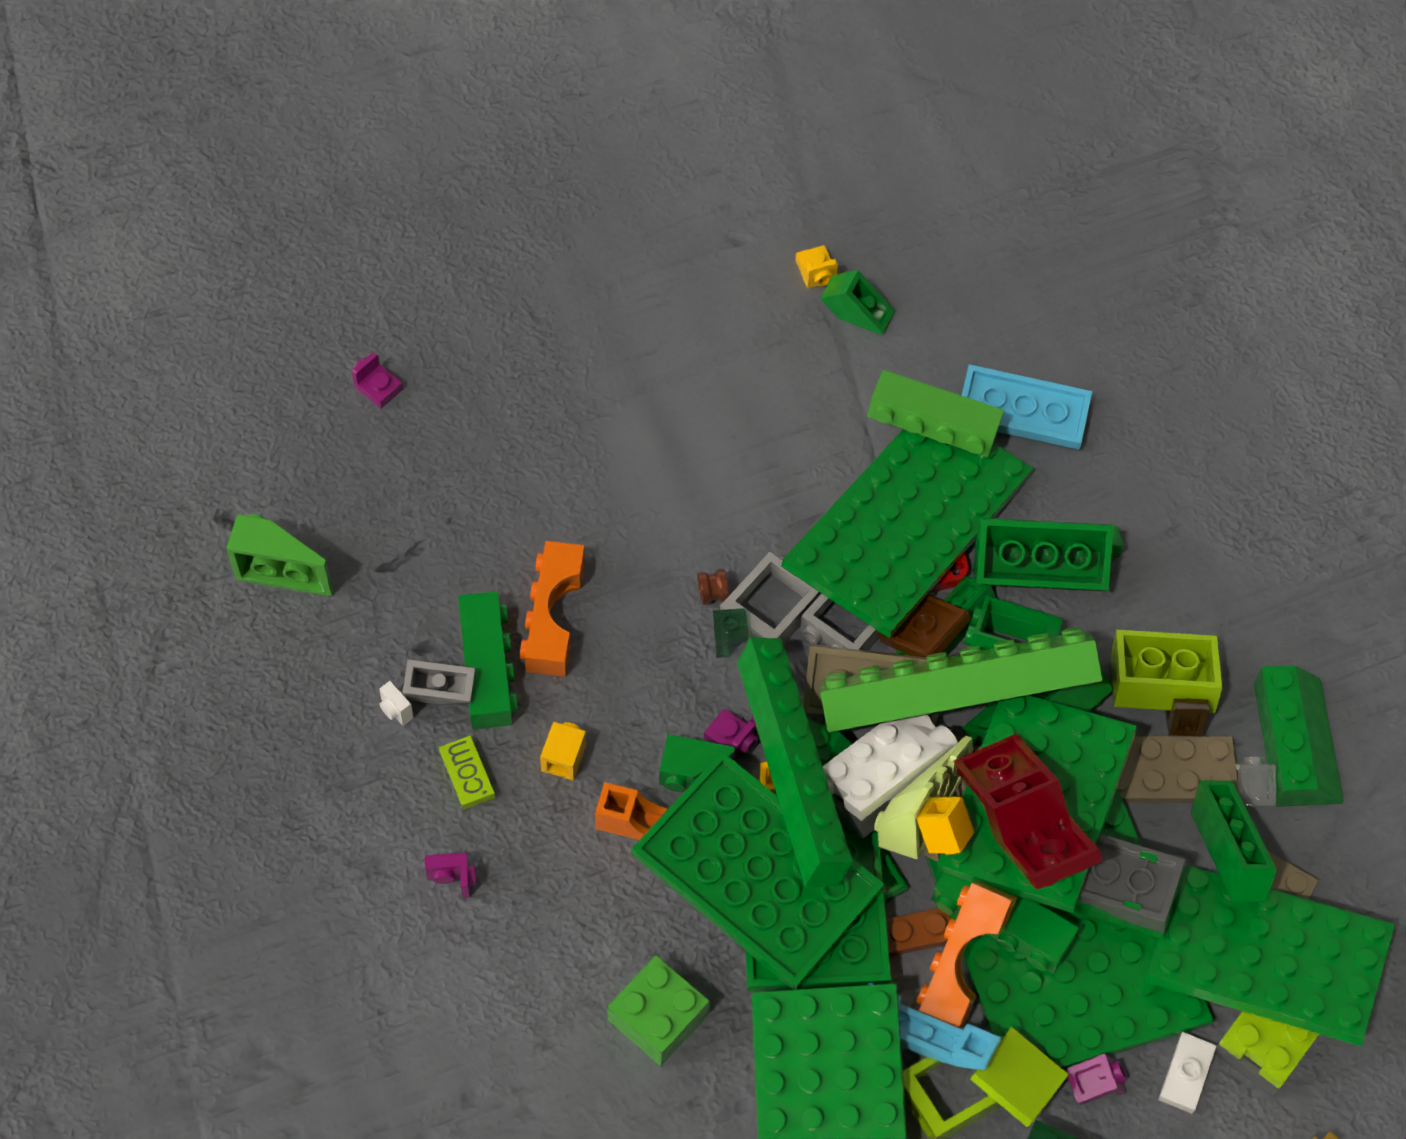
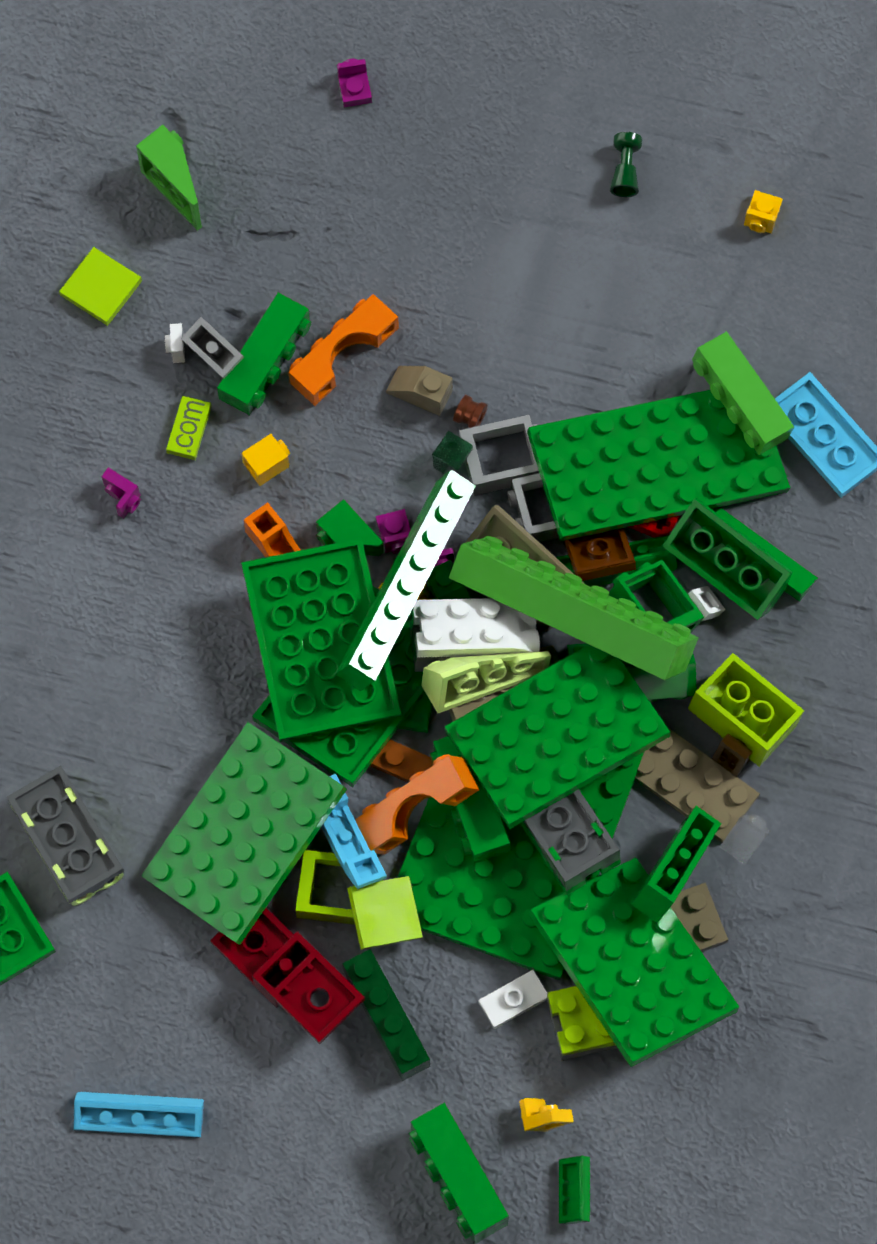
camera: 40 degrees right, 10 degrees up
(279, 702) = (100, 286): none -> lime tile
(651, 594) = (421, 387): none -> dark tan slope
(658, 1010) = (182, 689): bright green brick -> none
(680, 310) = (625, 176): none -> dark green piece
(857, 302) = (767, 263): green slope -> none
(945, 825) = (464, 701): yellow brick -> none
(1027, 812) = (524, 732): dark red bracket -> none
(1050, 606) = (706, 602): none -> white plate
(1096, 1078) = (444, 956): magenta bracket -> none
(1297, 736) = (809, 829): green slope -> none

